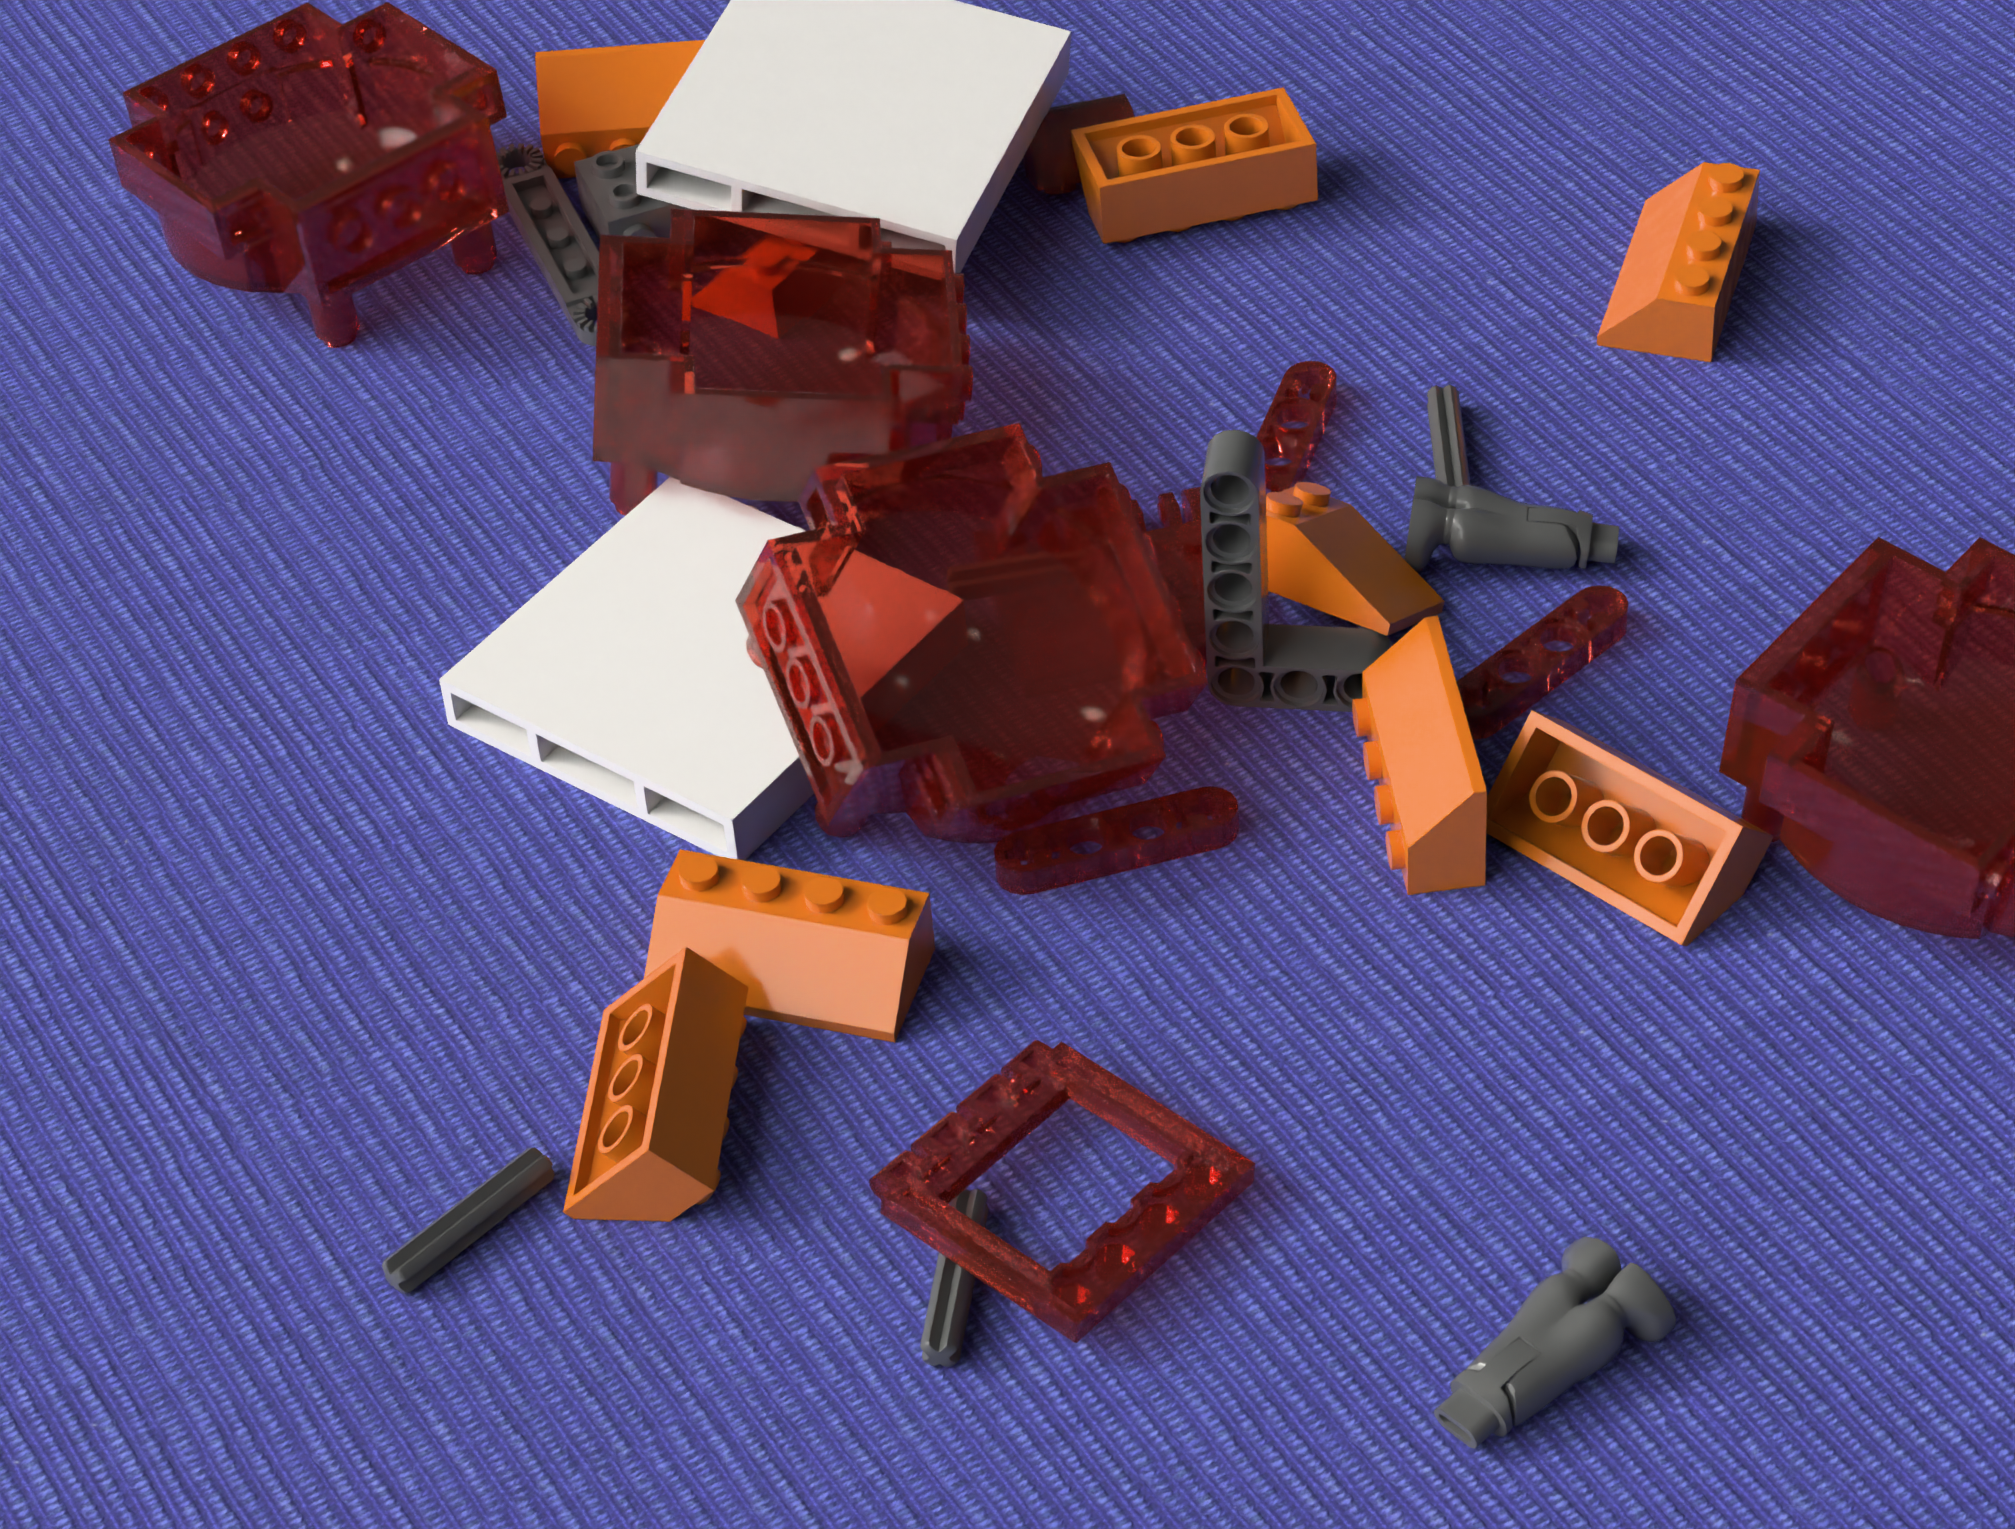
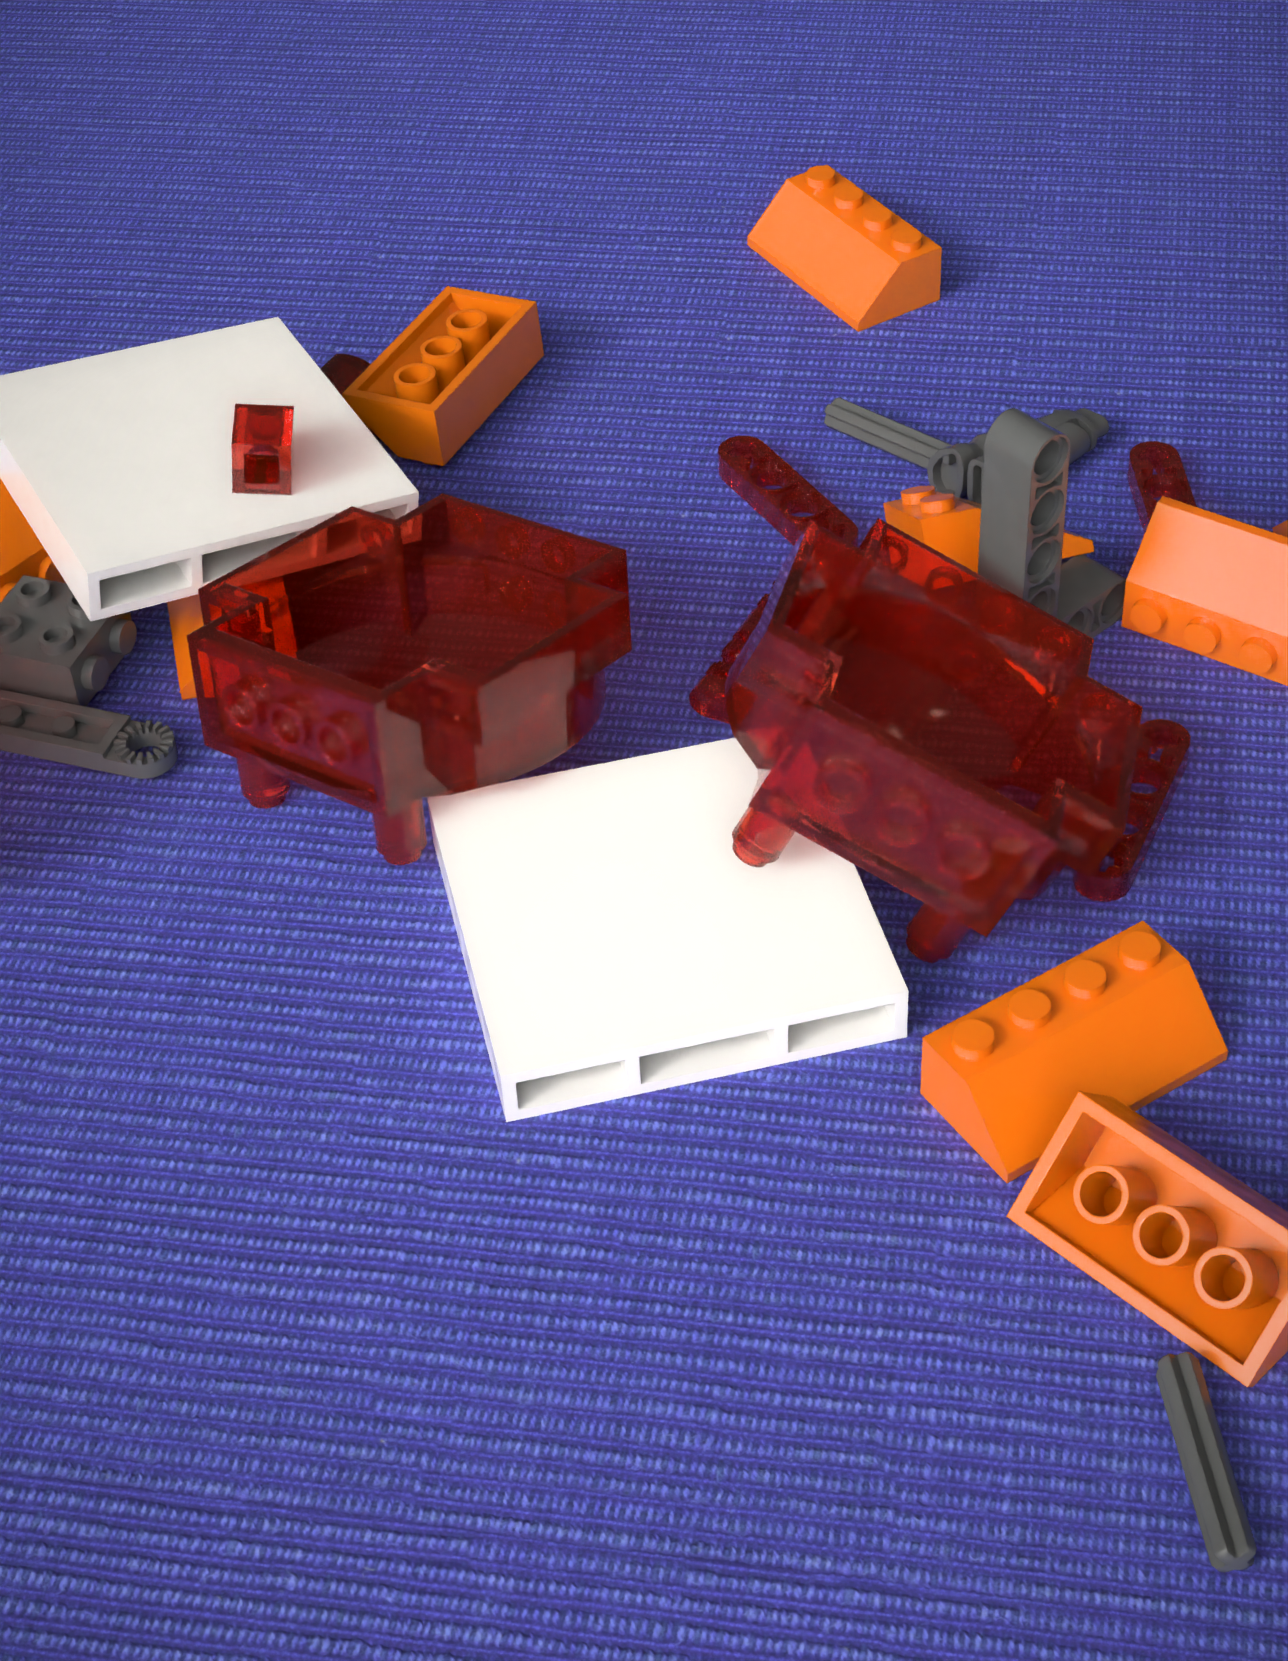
camera: 50 degrees left, 0 degrees up
(866, 131) = (262, 449): none -> clear red brick

